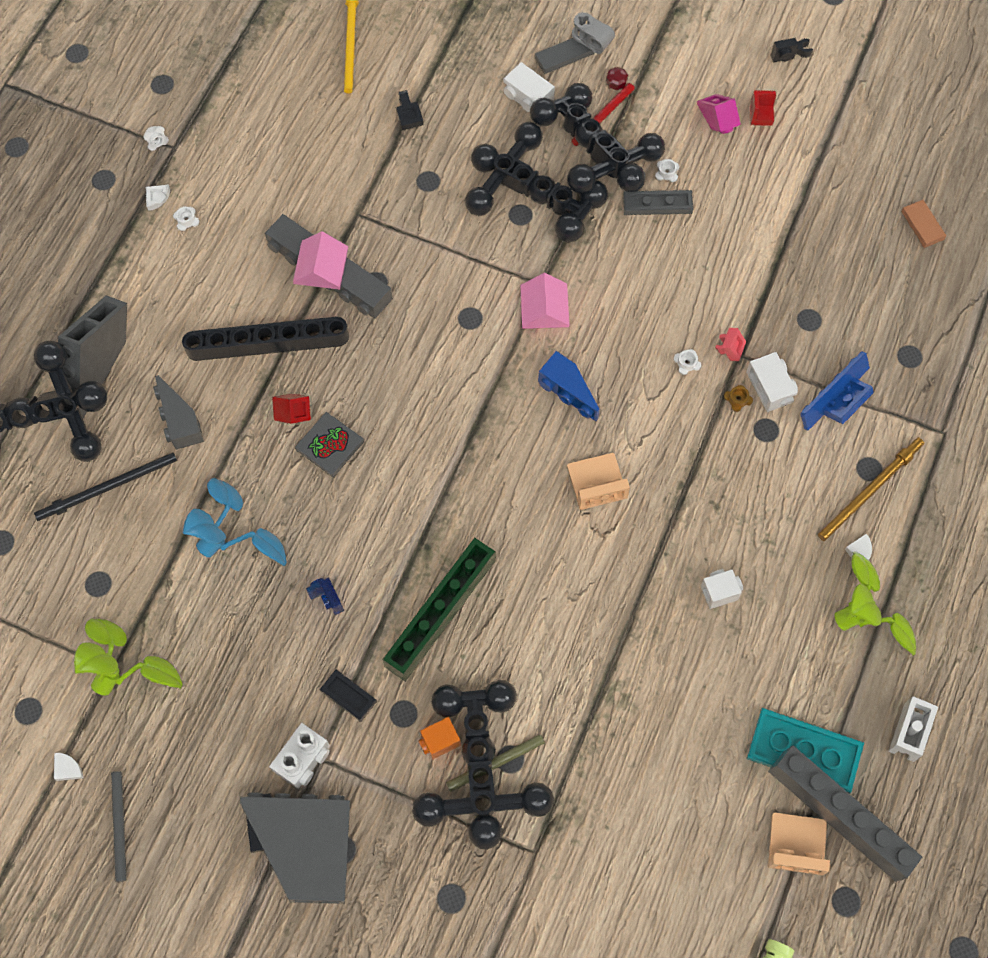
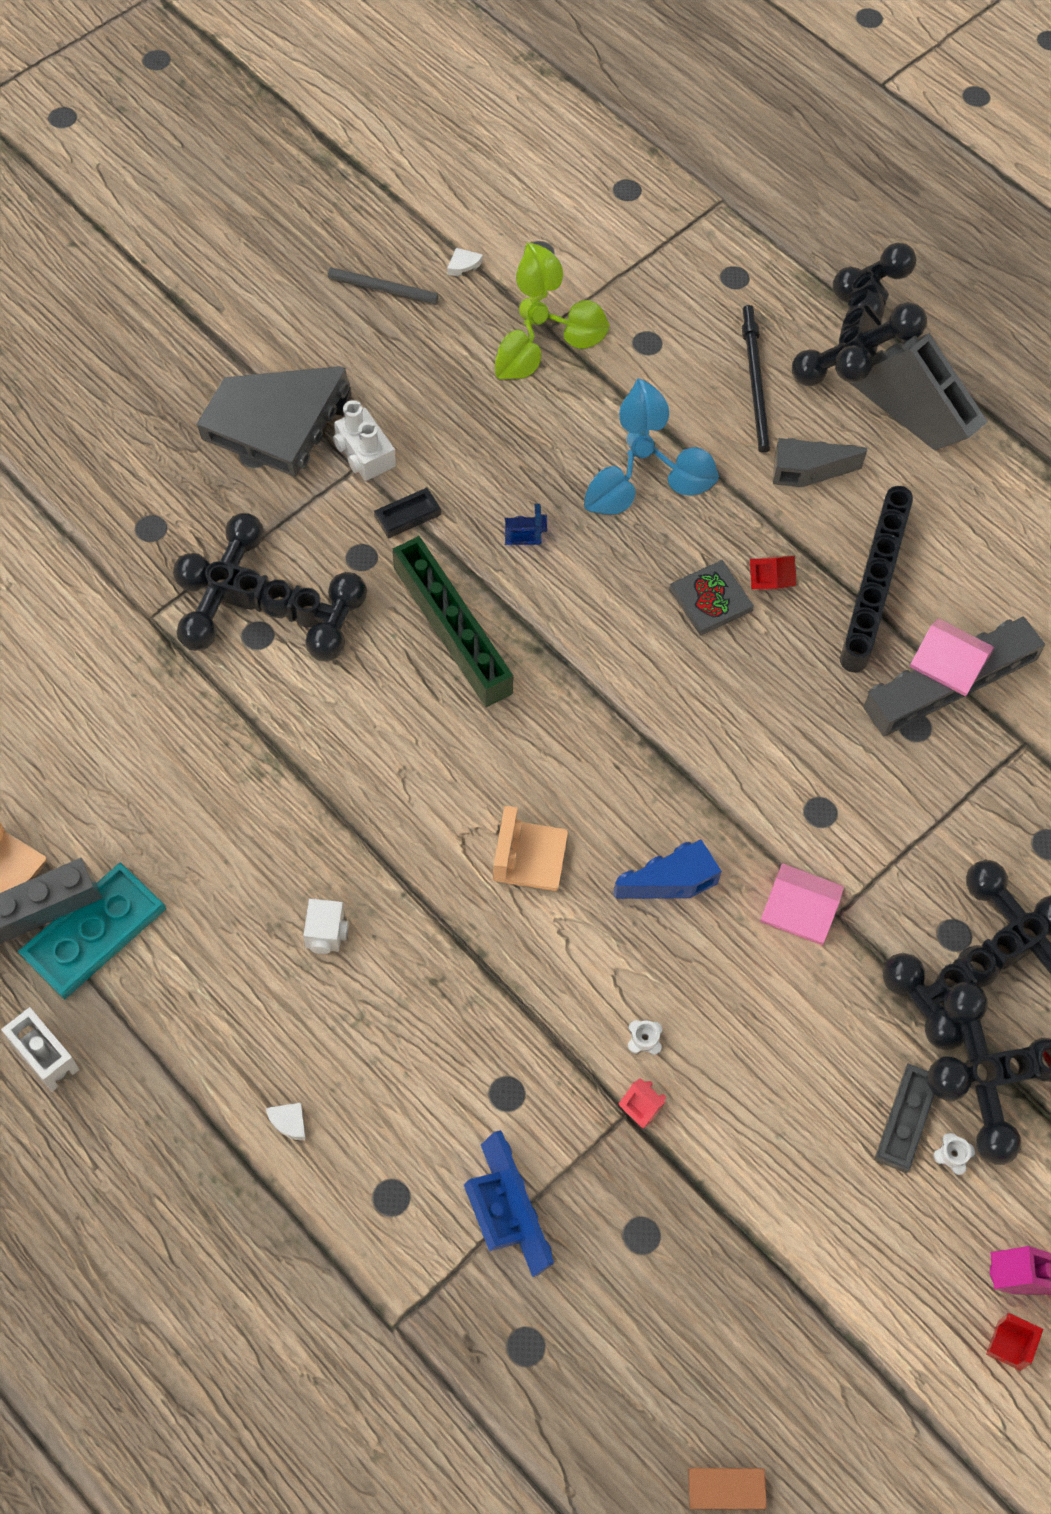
camera: 110 degrees right, 5 degrees down
(439, 738) = (313, 569): orange brick -> none
(498, 761) = (261, 631): olive bar -> none
(738, 391) = (567, 1066): pearl gold plate -> none
(772, 381) = (566, 1125): white brick -> none
(863, 609) = (189, 1027): lime plant -> none
(903, 457) = (382, 1244): pearl gold bar -> none

